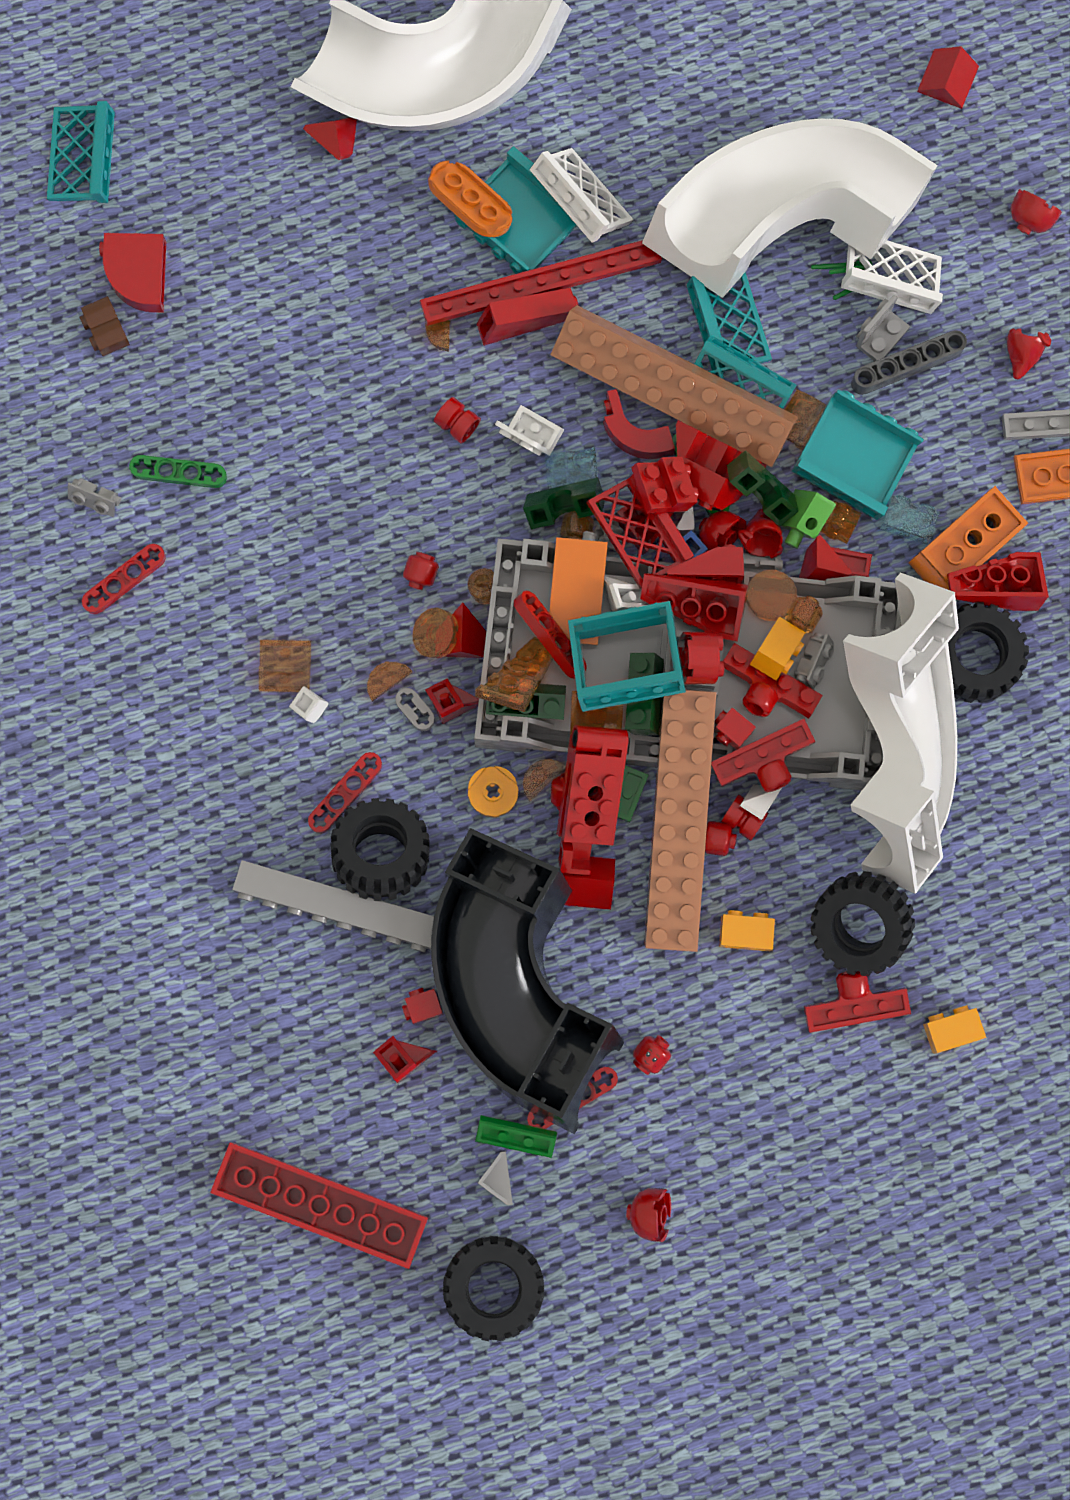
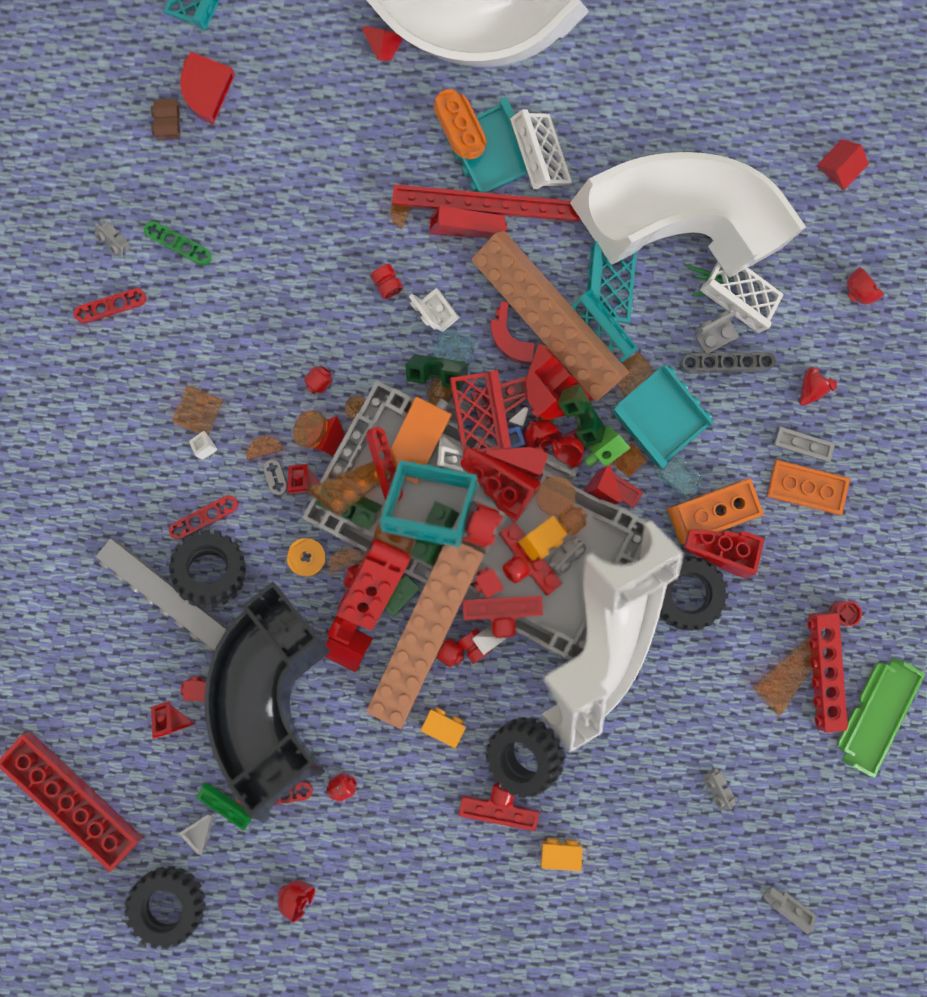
camera: 25 degrees right, 5 degrees up
(665, 485) = (510, 388): red plate -> none

